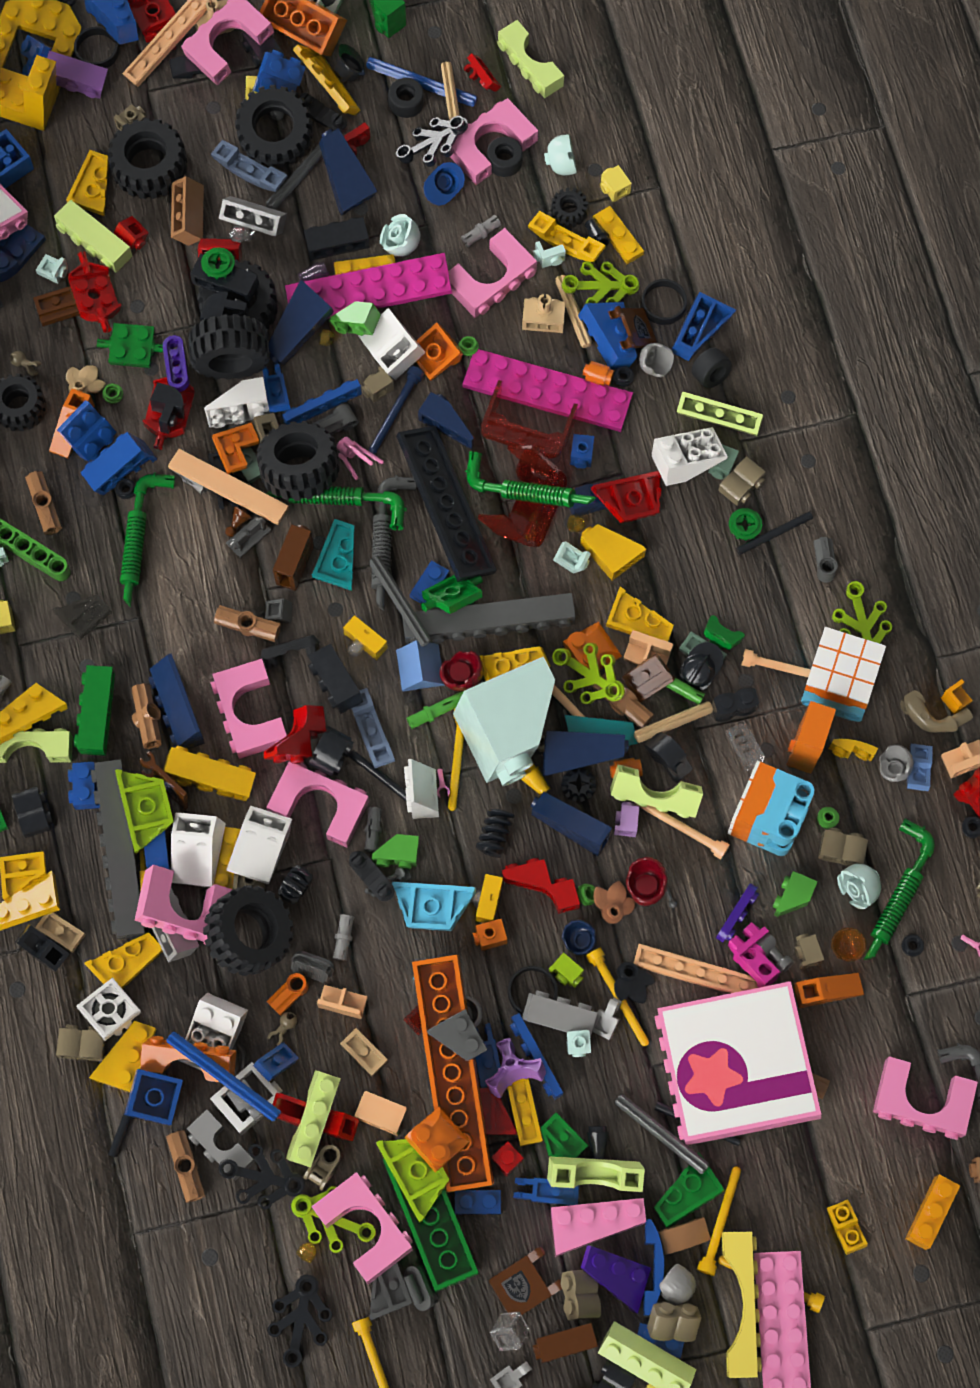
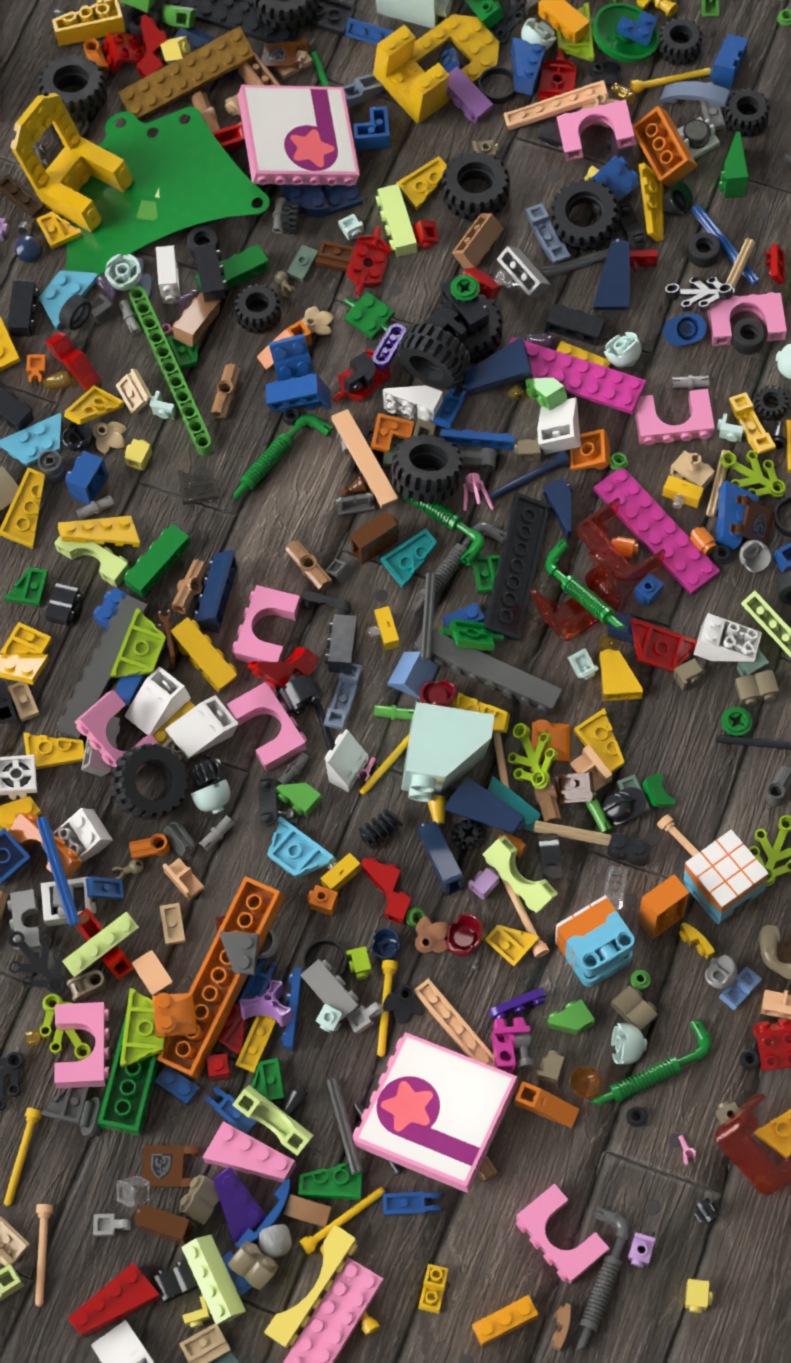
camera: 40 degrees right, 5 degrees down
(28, 332) = (302, 263): none -> sand green plate
(112, 388) = (331, 338): bright green plate -> none
(315, 905) = (212, 797): none -> light aqua cylinder
(420, 526) = (484, 572): none -> green wing
(533, 421) = (626, 546): none -> orange brick
(548, 340) = (682, 492): none -> yellow piece
(673, 507) = (688, 673): none -> dark tan brick
(691, 860) = (511, 943): none -> yellow wing
(769, 1165) = (409, 1203): none -> blue hinge

